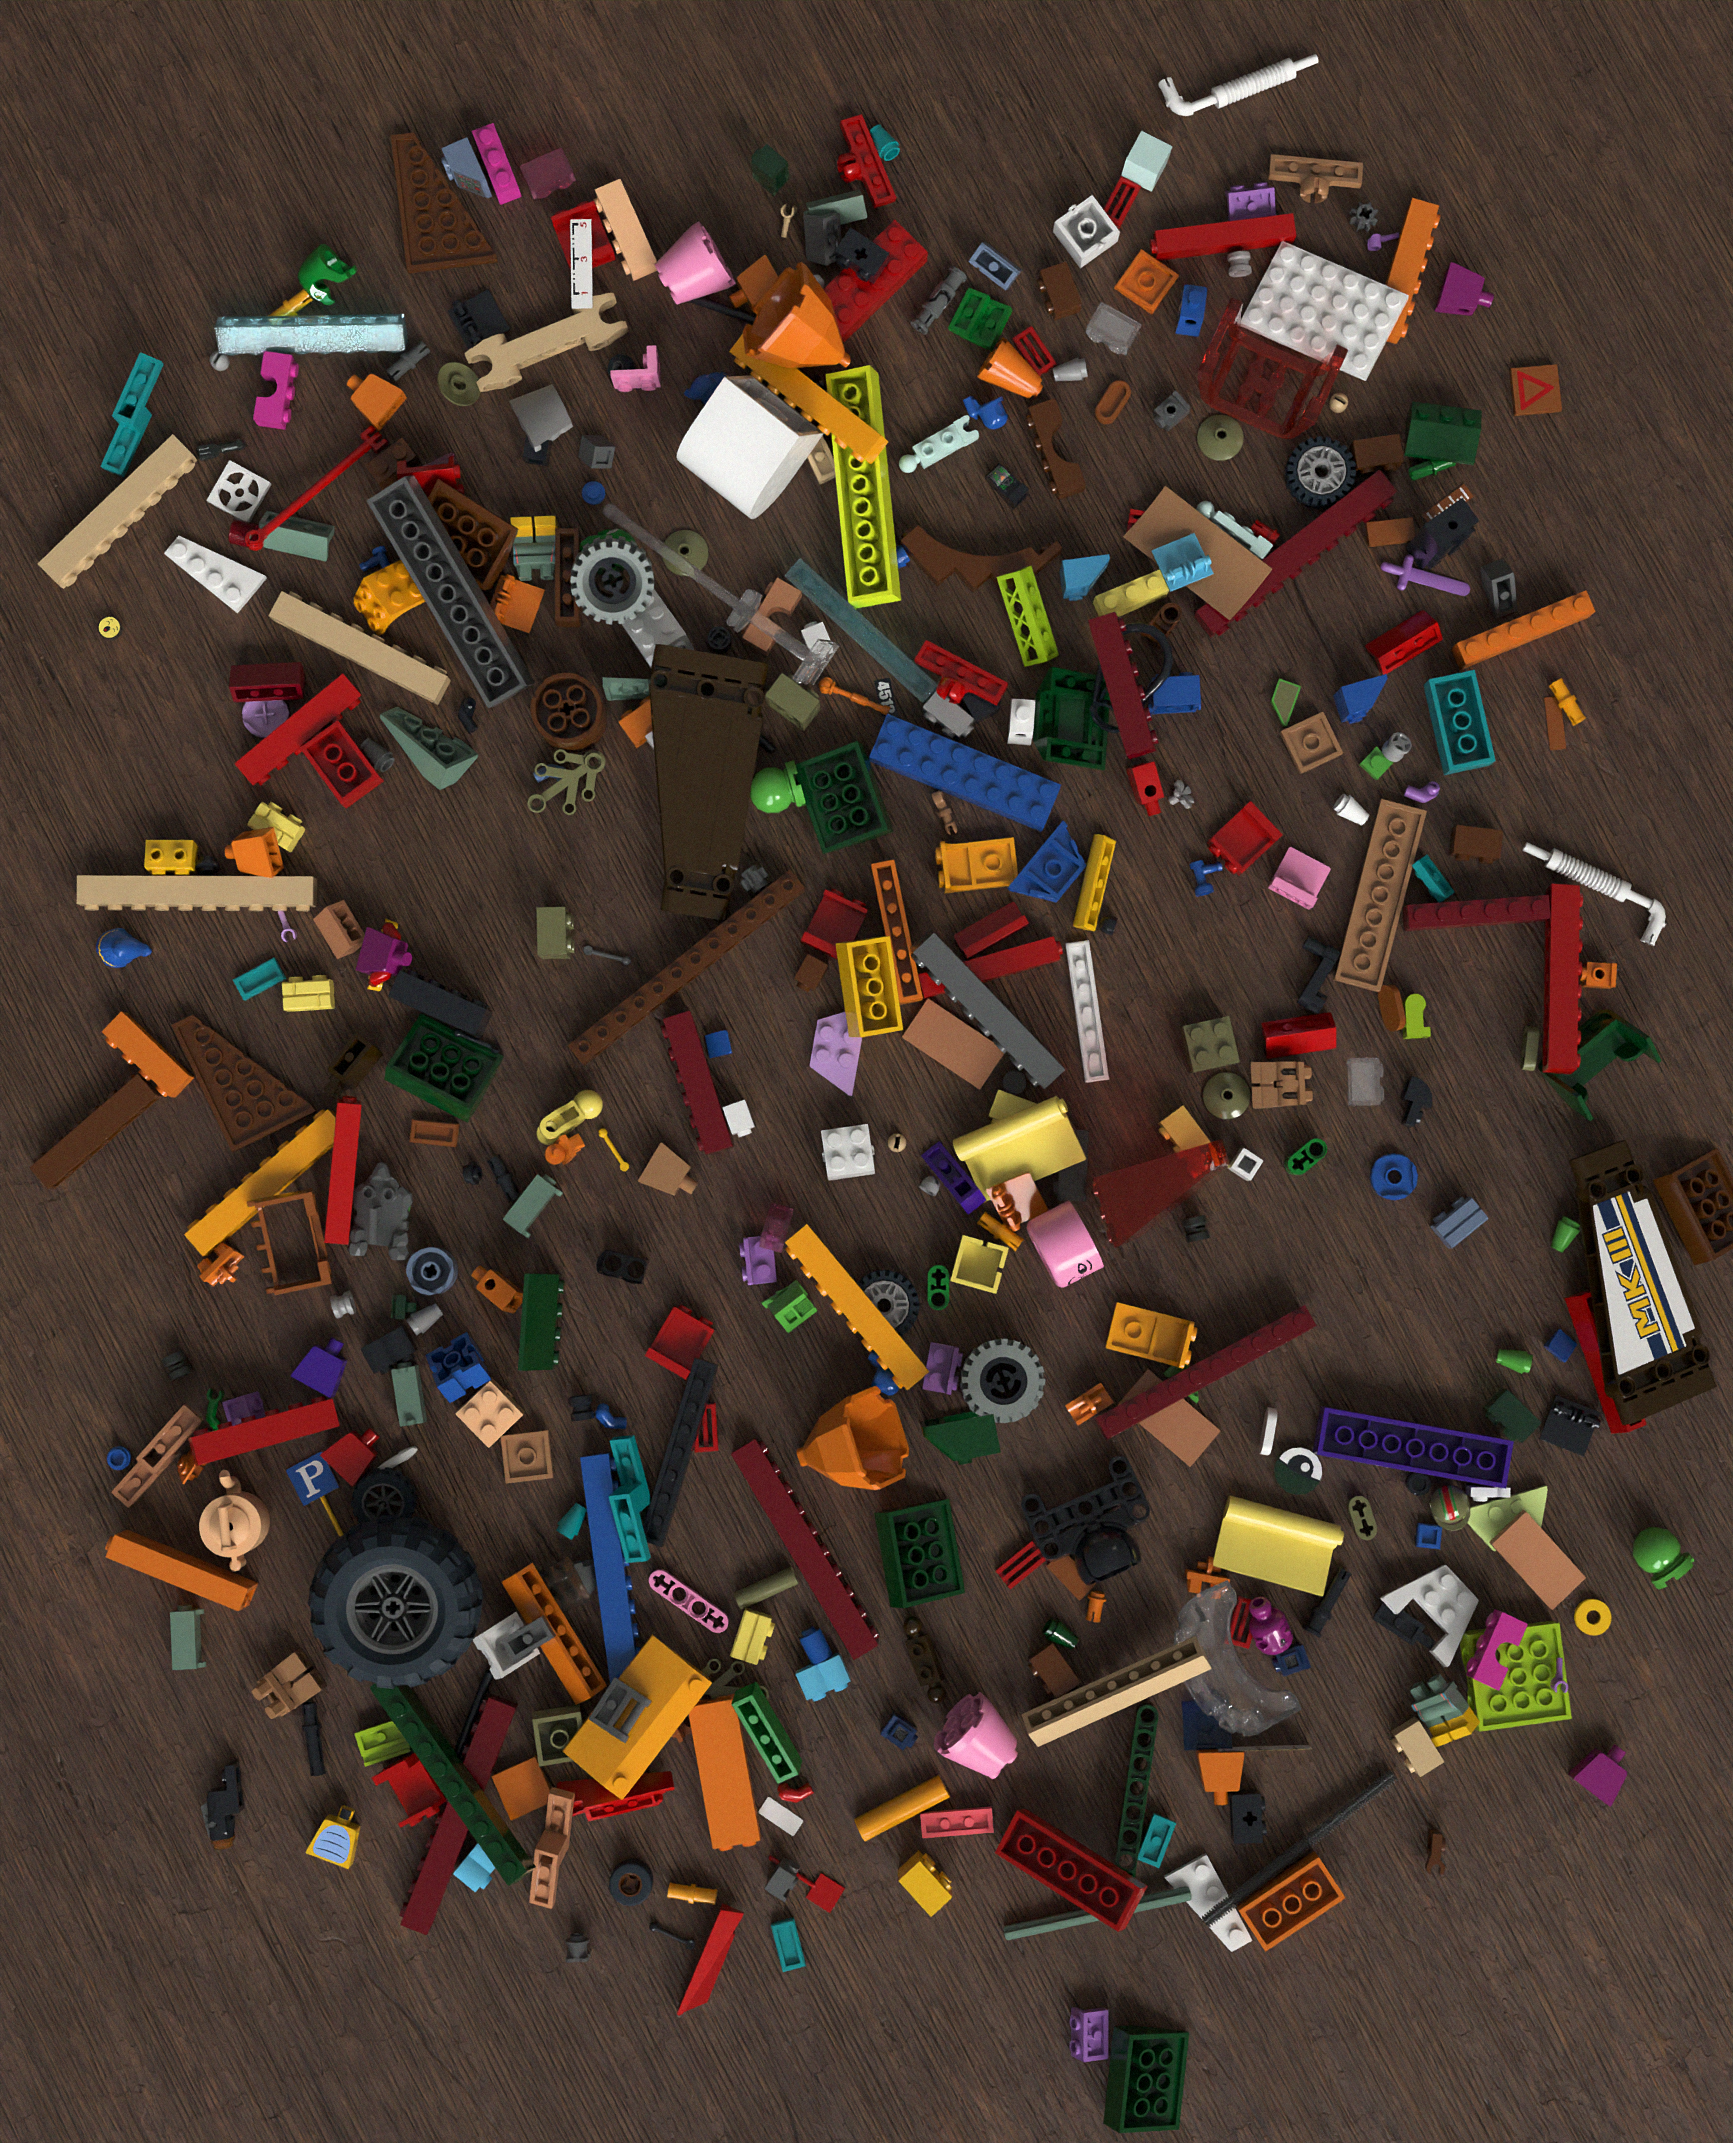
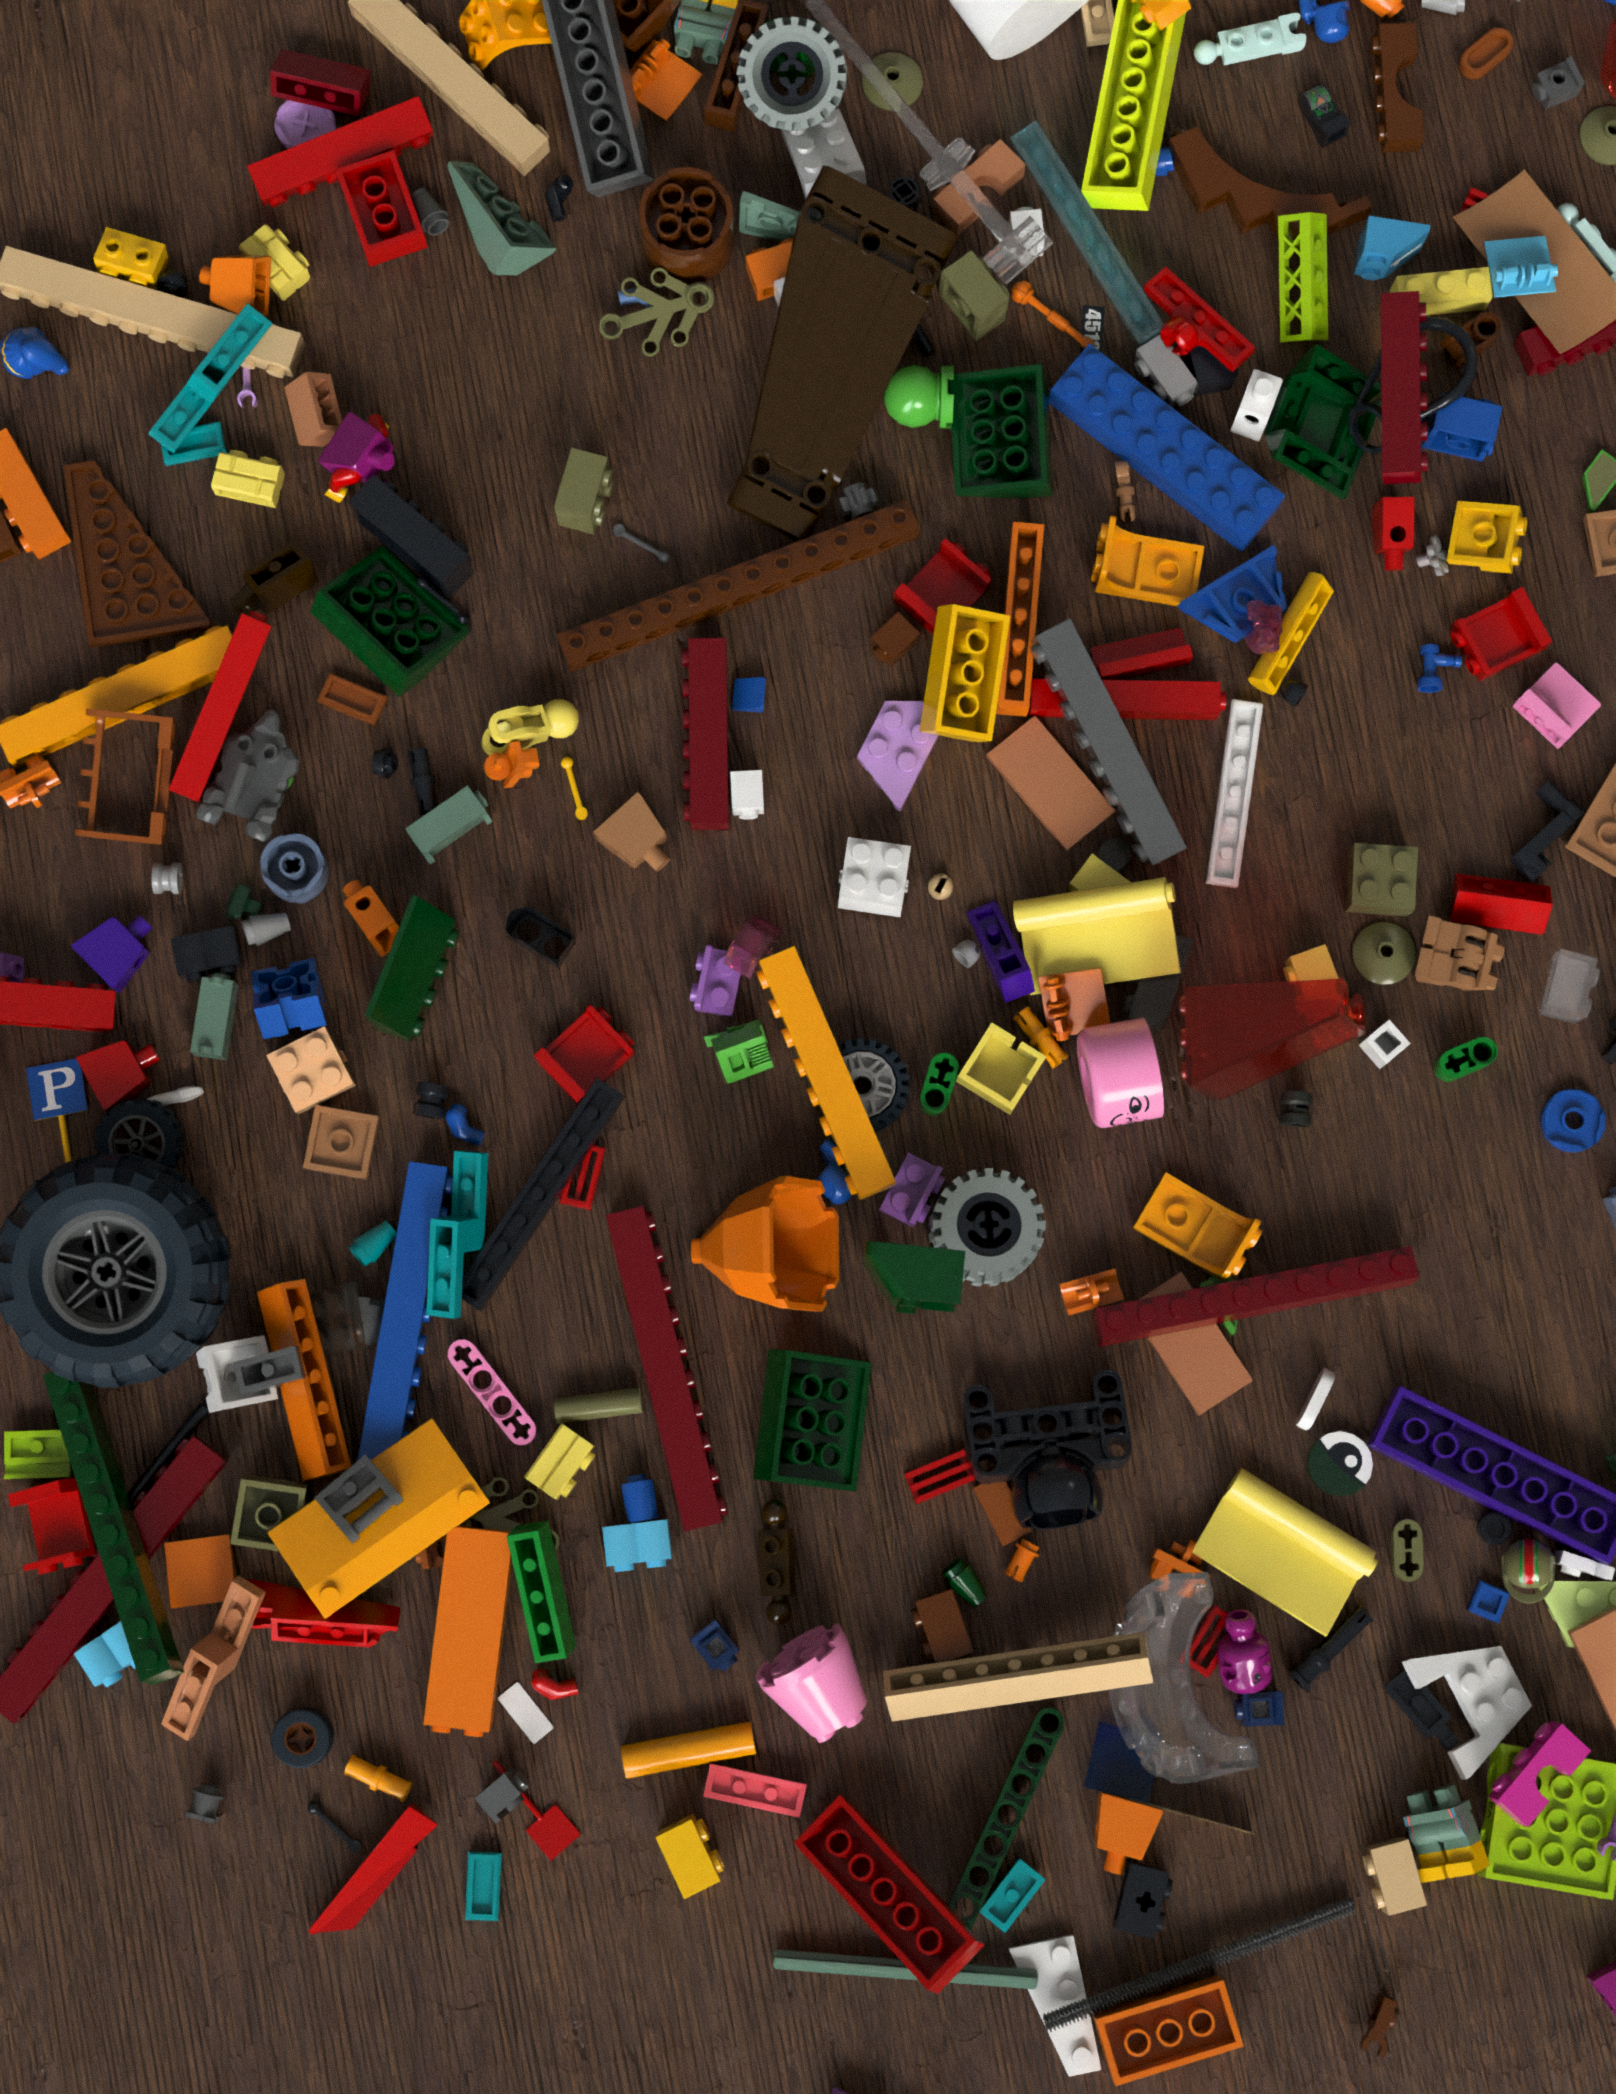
camera: 15 degrees right, 5 degrees down
(258, 930) = (210, 378): none -> teal bracket
(1075, 887) = (1266, 627): none -> clear pink plate
(1214, 769) = (1487, 536): none -> yellow plate

